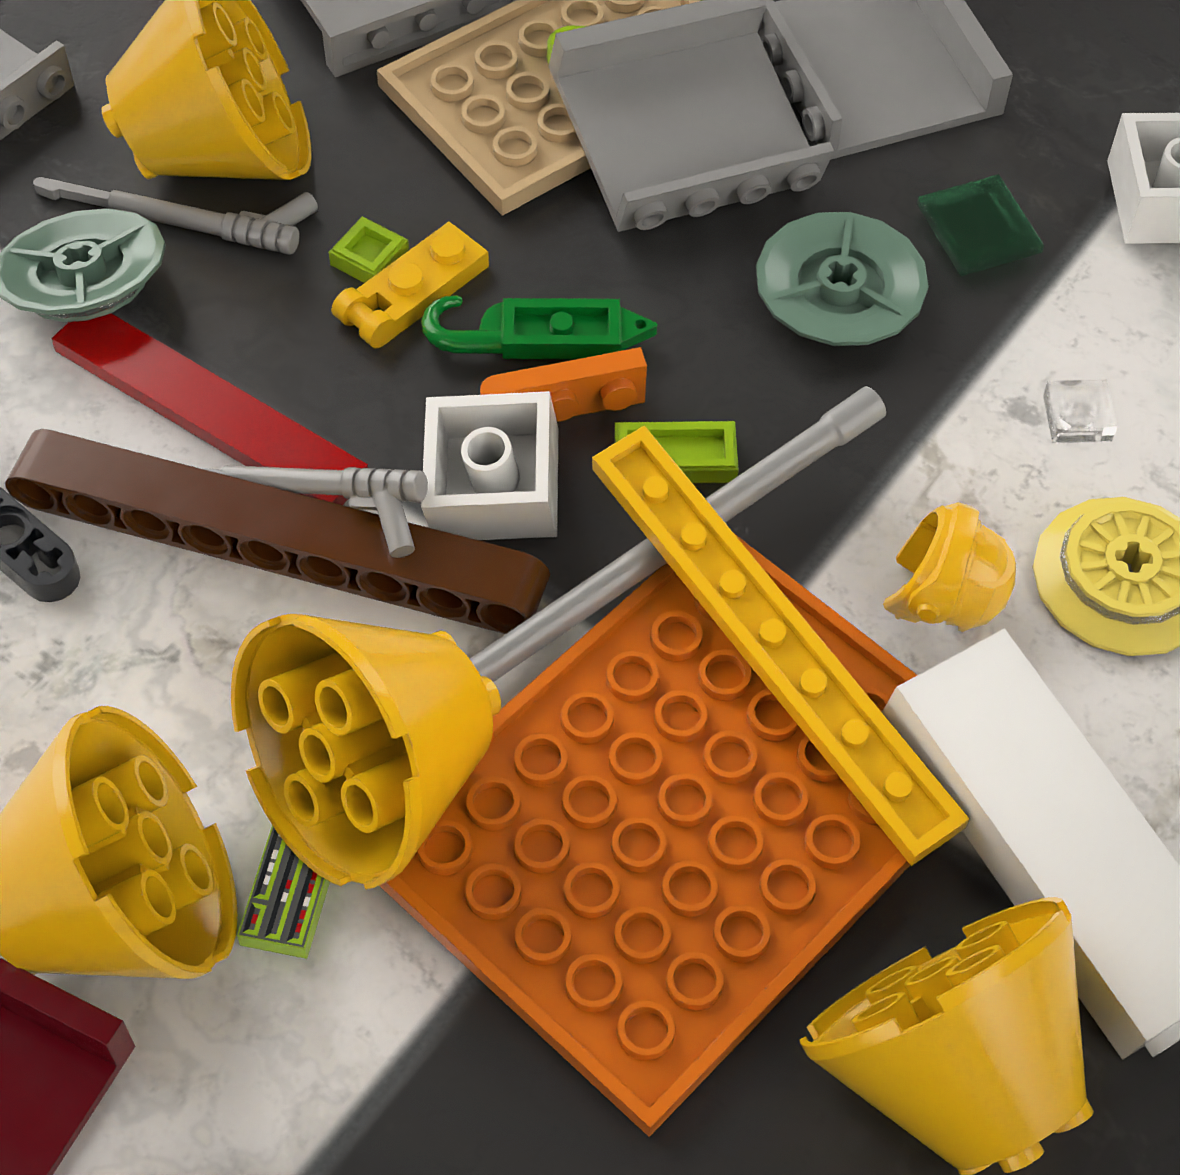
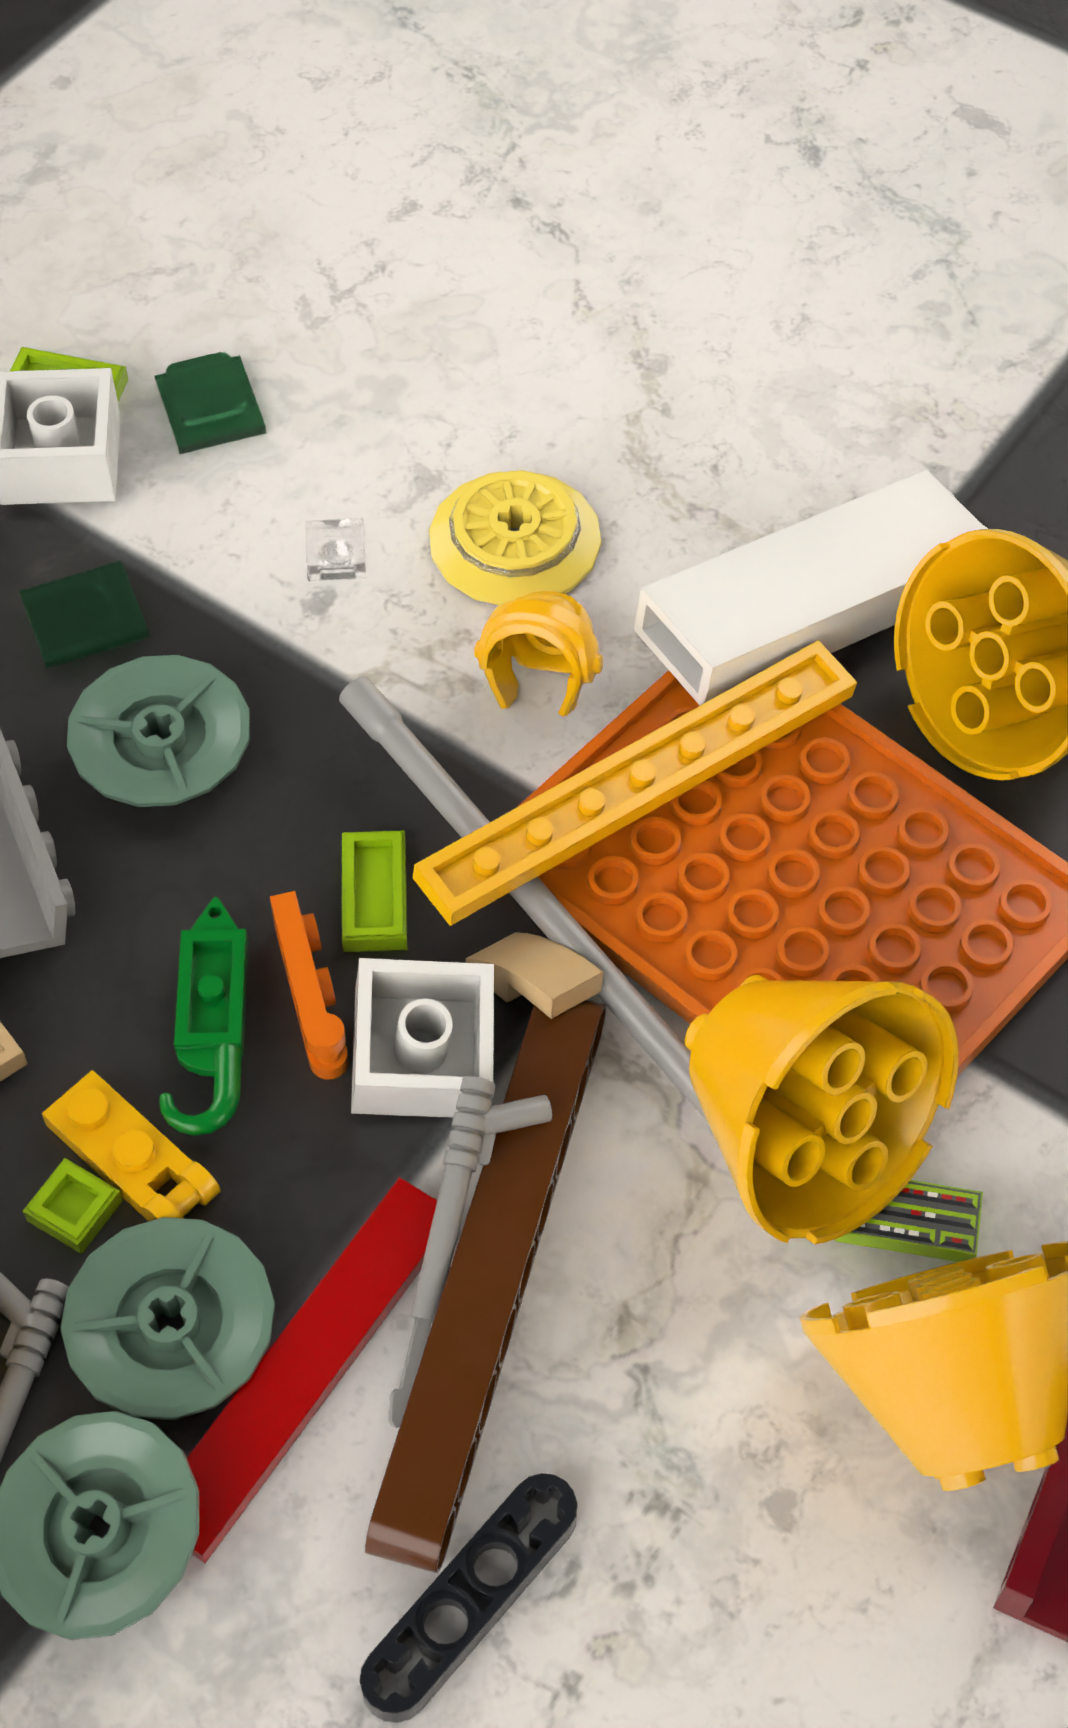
camera: 90 degrees left, 0 degrees up
(251, 307) = (168, 1270): none -> sand green piece
(559, 558) = (541, 972): none -> tan slope

